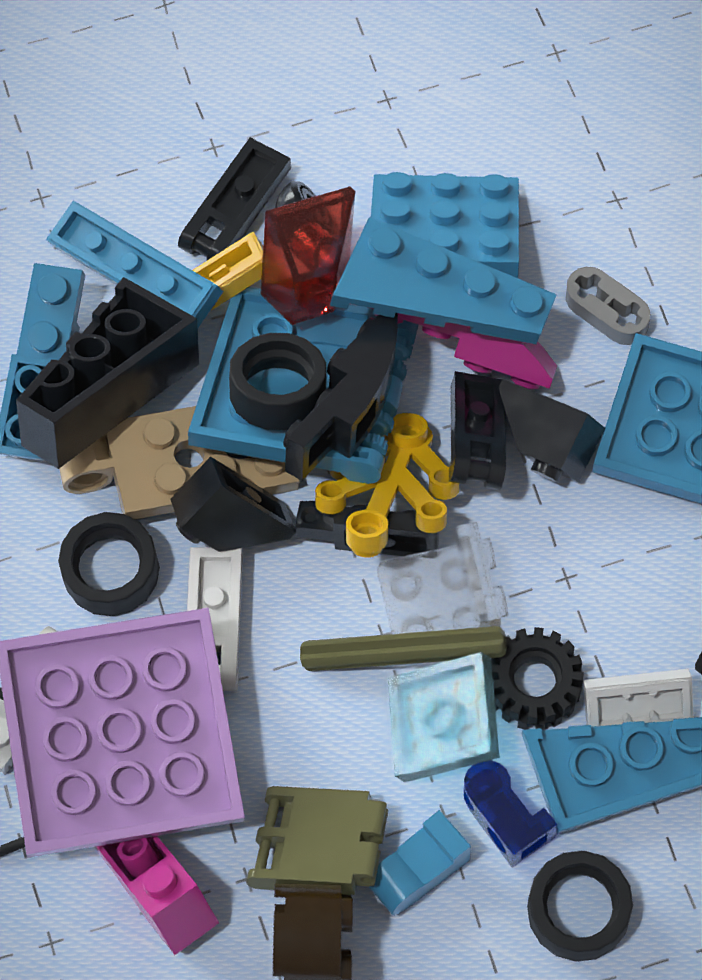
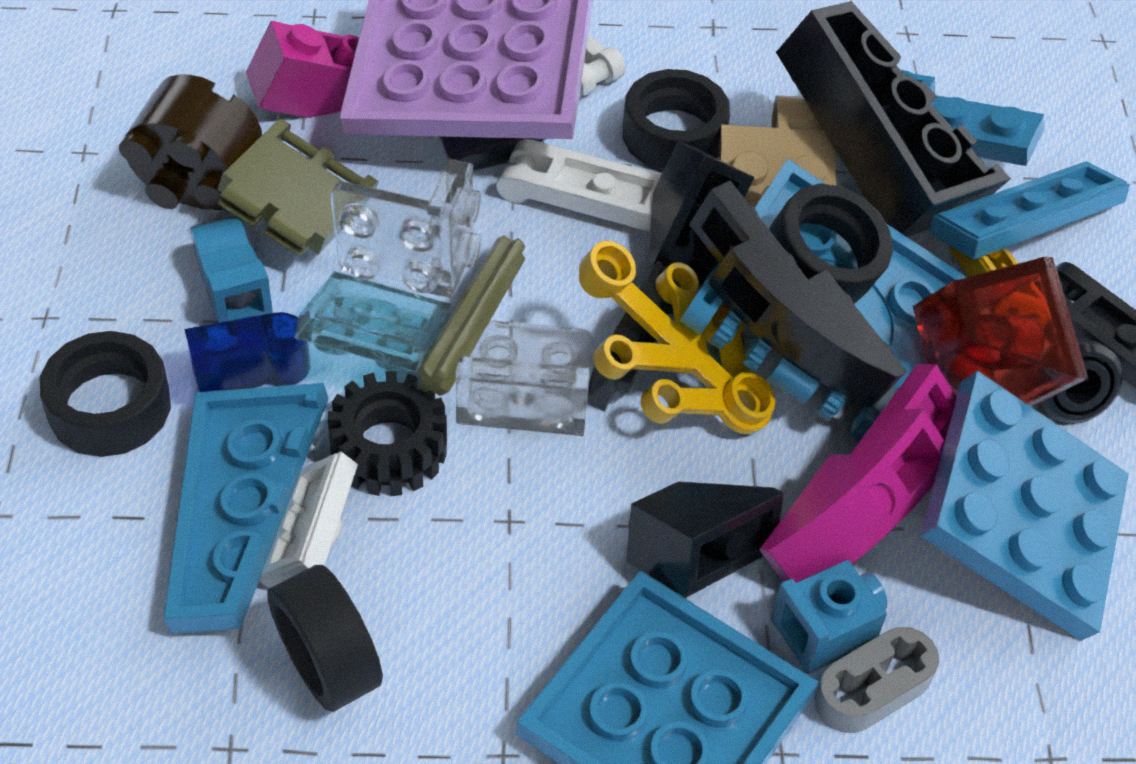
camera: 100 degrees right, 15 degrees down
(340, 686) = (407, 237): none -> clear bracket
(423, 280) = (919, 408): dark azure wing -> none
(477, 430) = (716, 445): black plate -> none
(581, 352) = (829, 614): none -> dark azure brick

